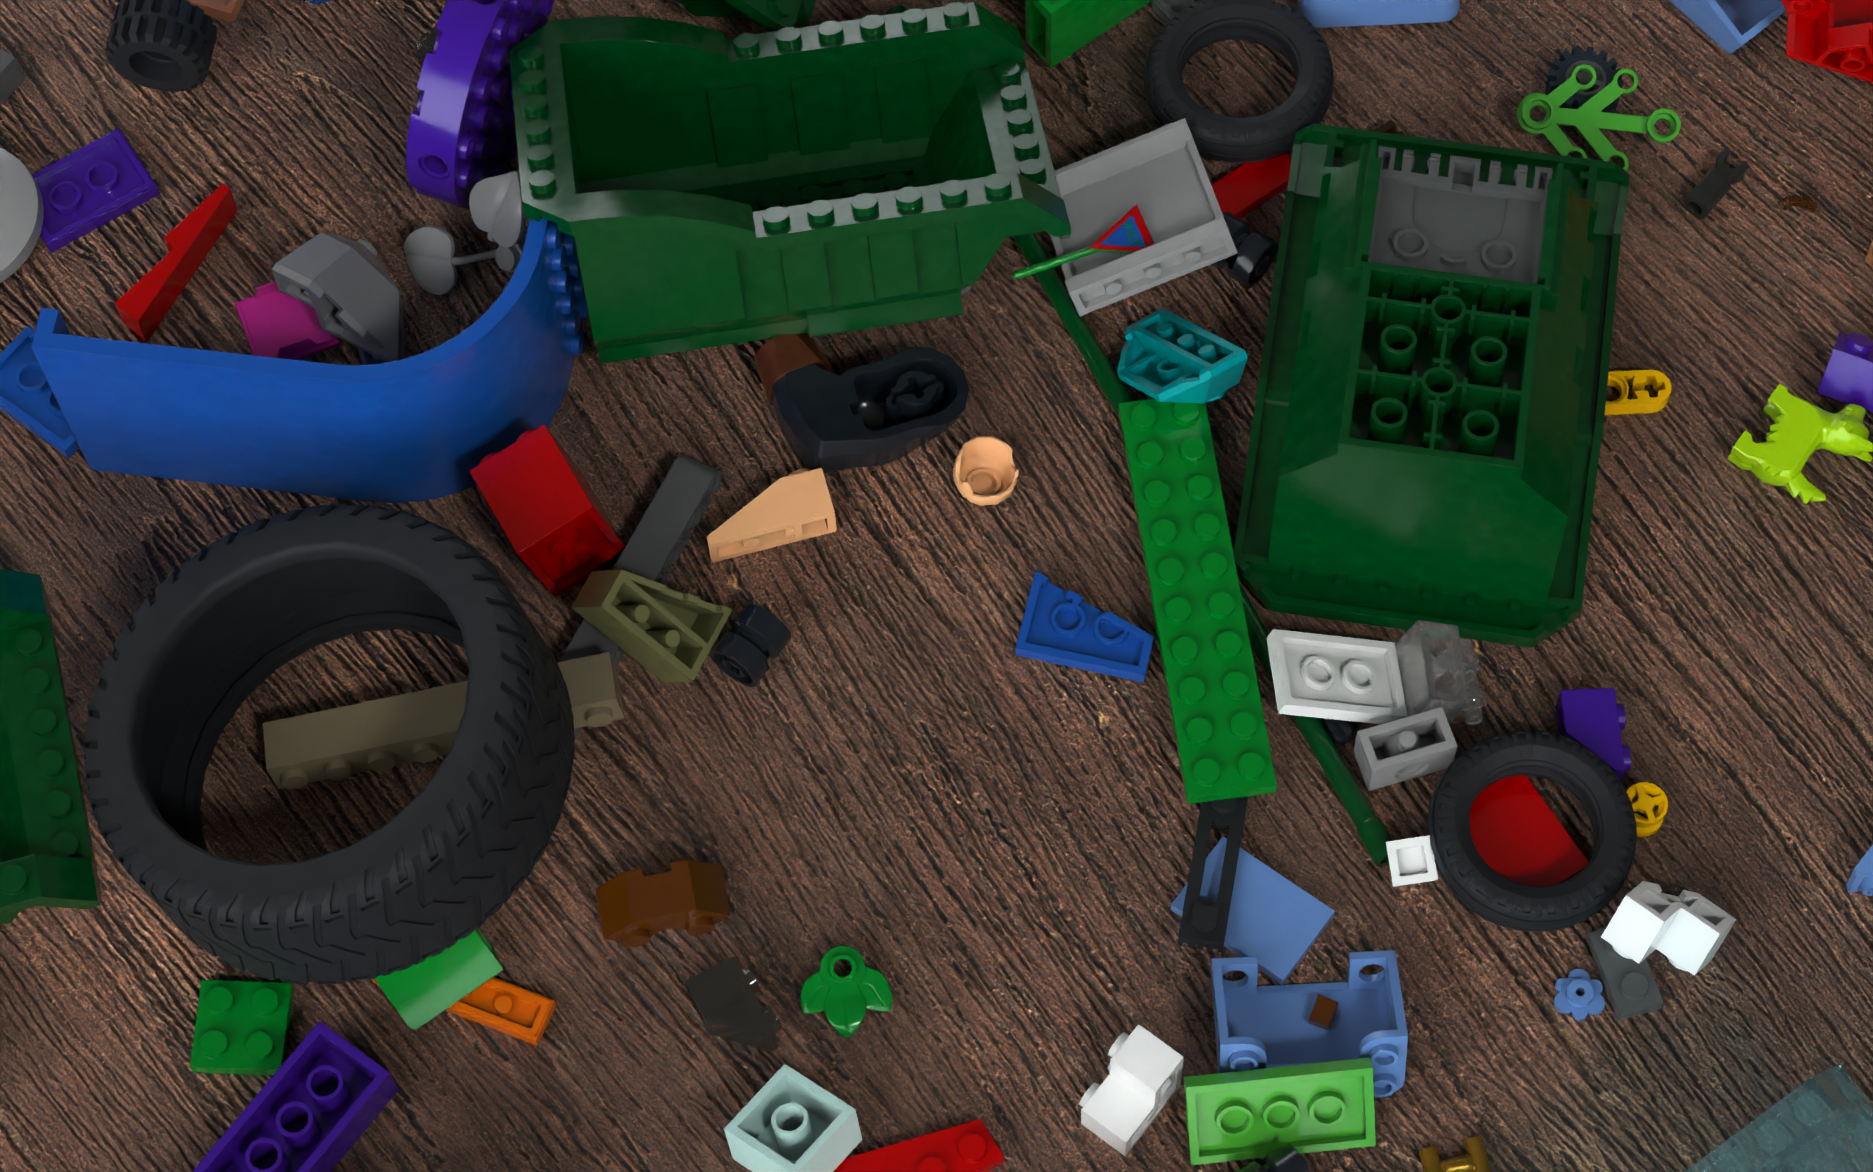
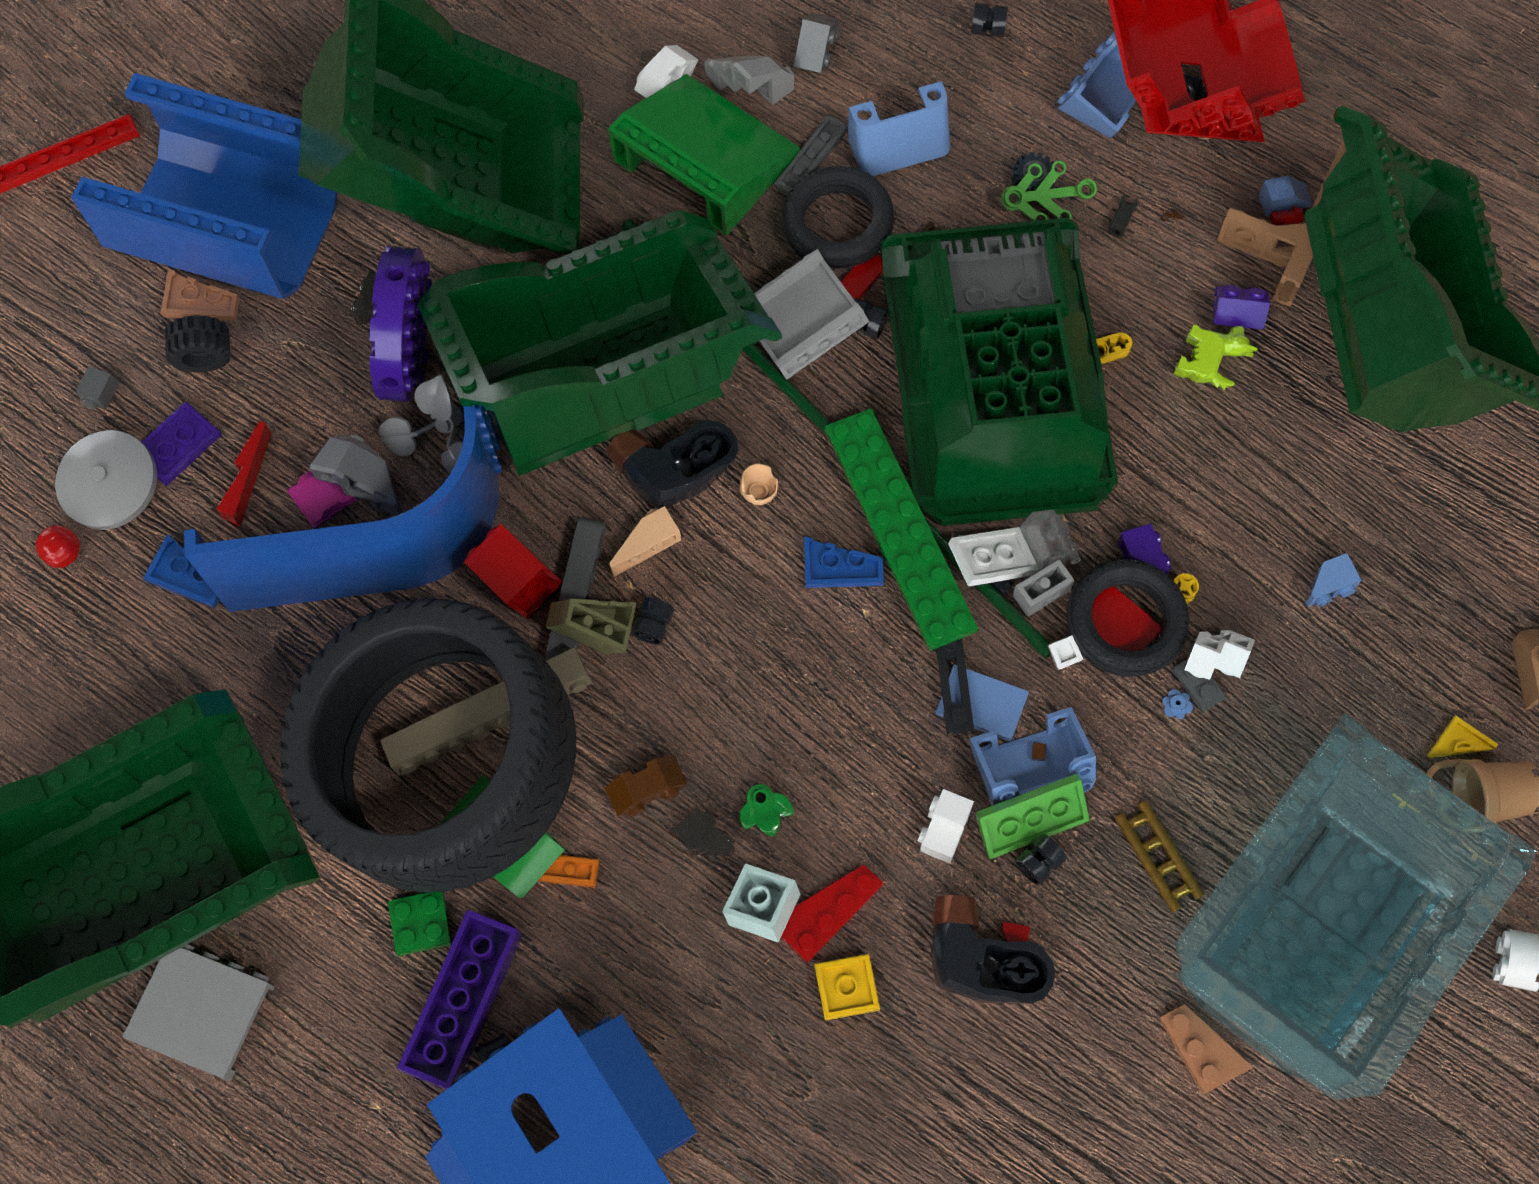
camera: 15 degrees left, 5 degrees up
(1125, 236) = (801, 326): piece -> none
(1178, 360) = (851, 392): teal wedge -> none

